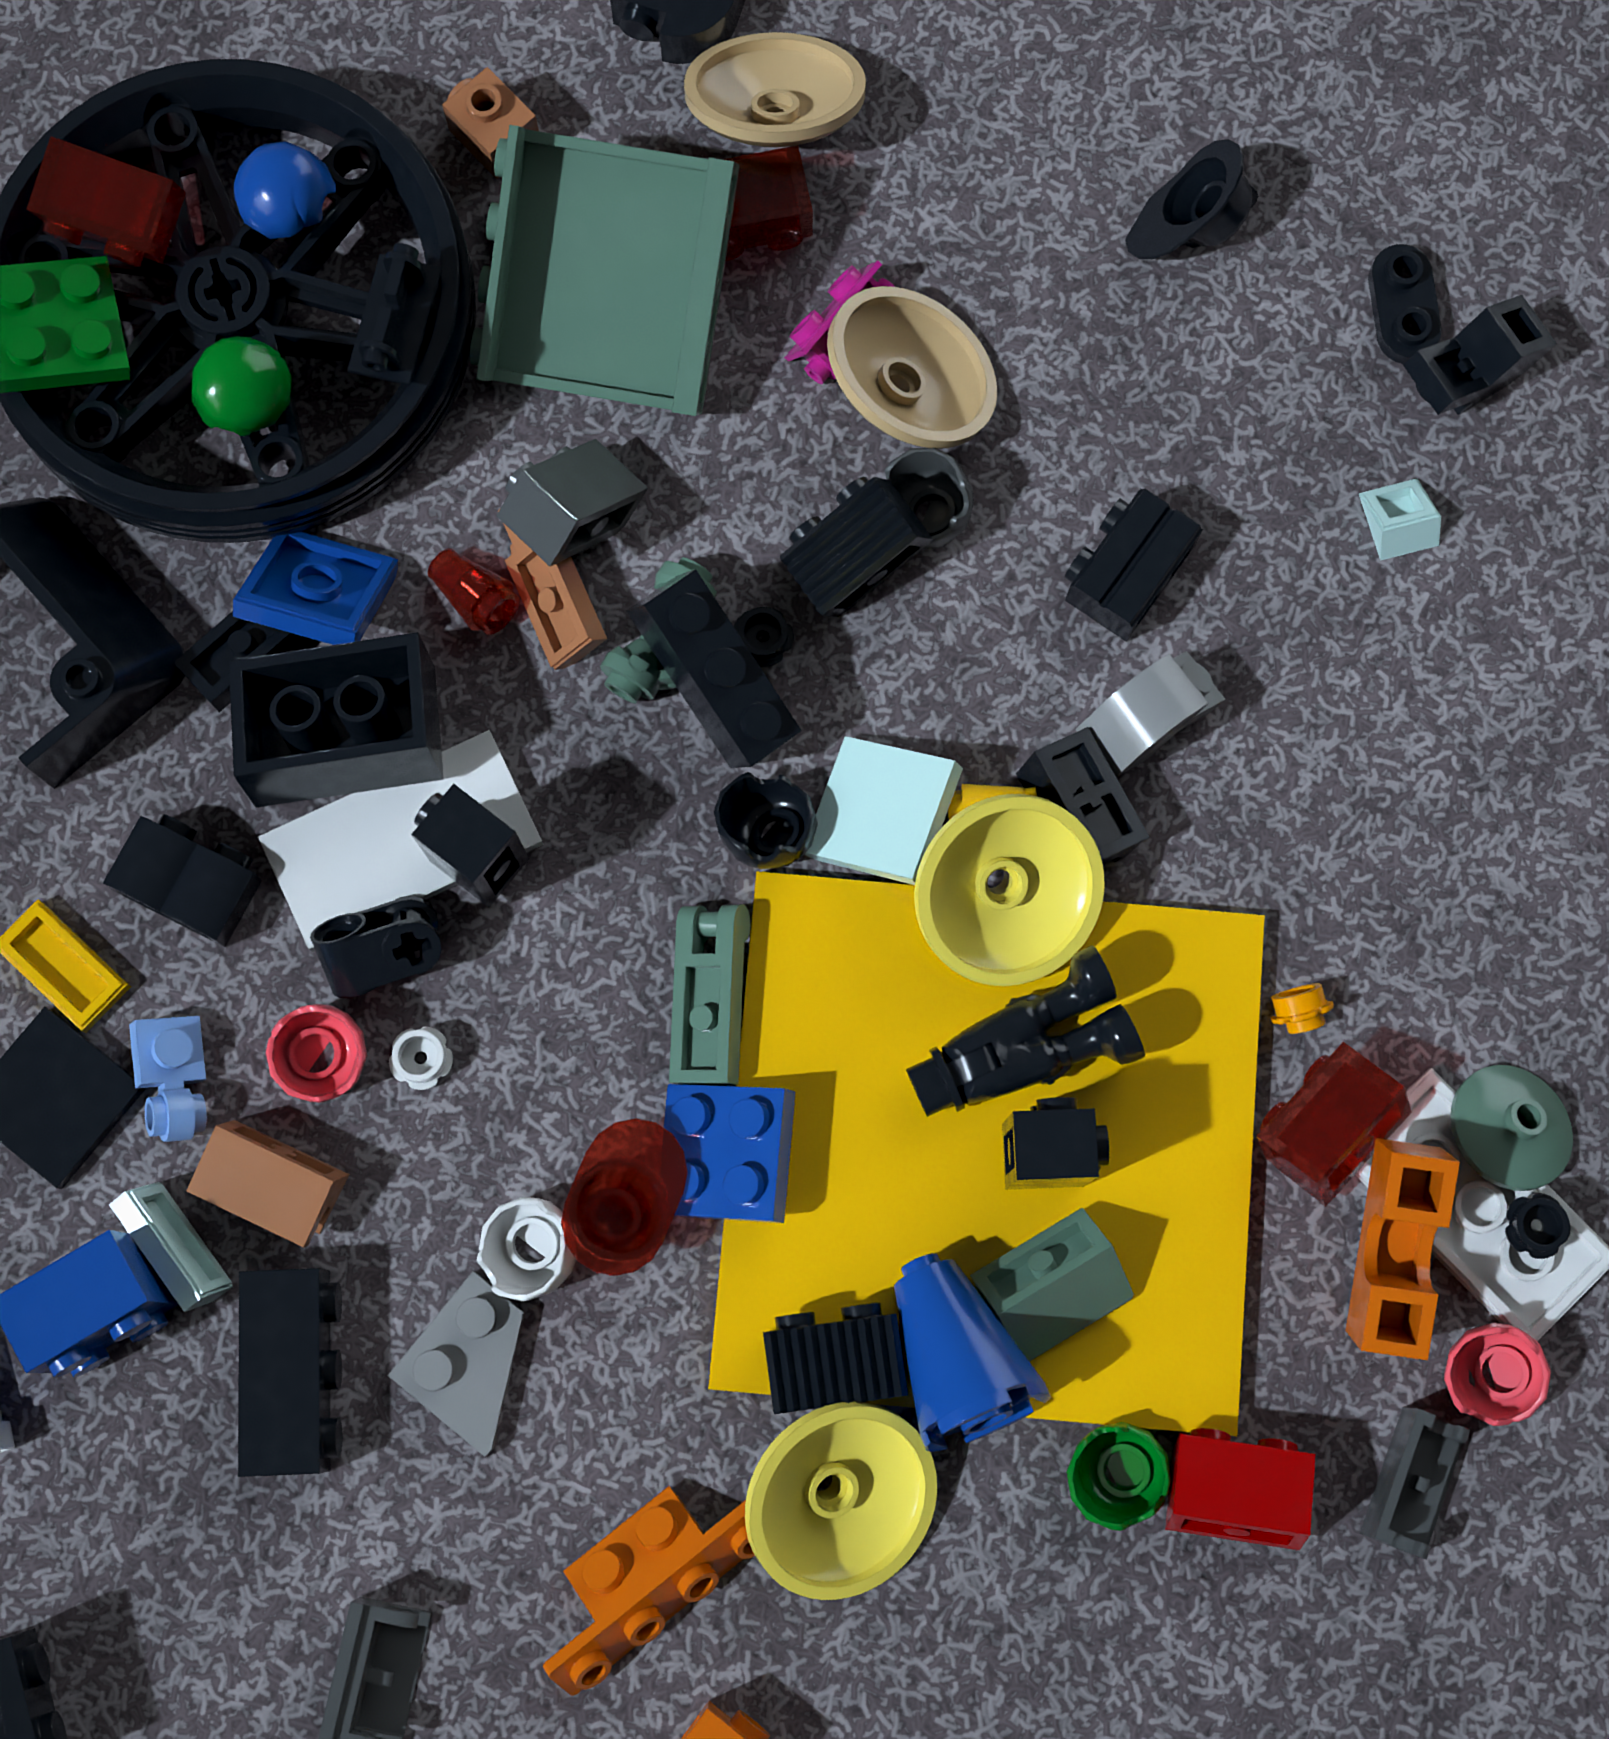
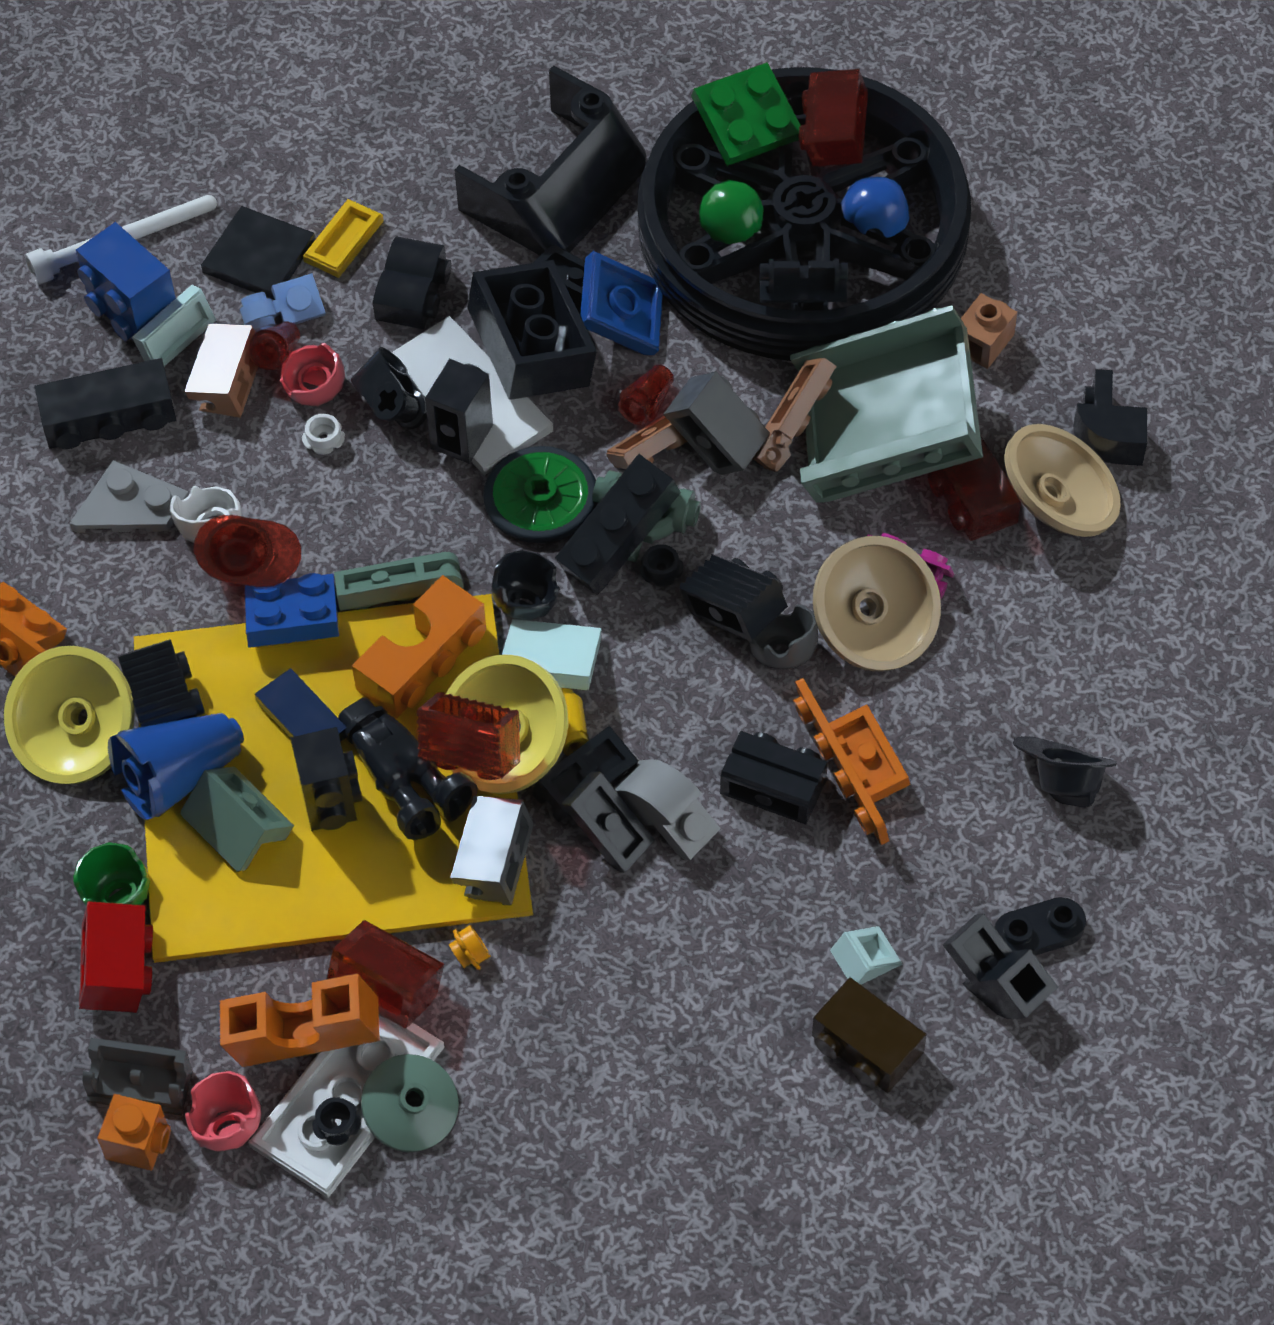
camera: 80 degrees right, 20 degrees down
(249, 1098) = (273, 345): none -> clear red cone
(562, 392) = (792, 413): none -> nougat hinge
(593, 812) = (539, 517): none -> green wheel
(813, 932) = (400, 674): none -> orange arch
(904, 1167) = (296, 707): none -> dark blue tile
(1039, 935) = (469, 735): none -> clear red brick
(1126, 448) = (861, 754): none -> orange bracket
(1168, 787) = (608, 821): none -> black plate
(1182, 946) = (492, 849): none -> hinge
(1506, 1497) = (134, 1132): none -> orange brick
(1527, 538) = (867, 1036): none -> dark brown brick

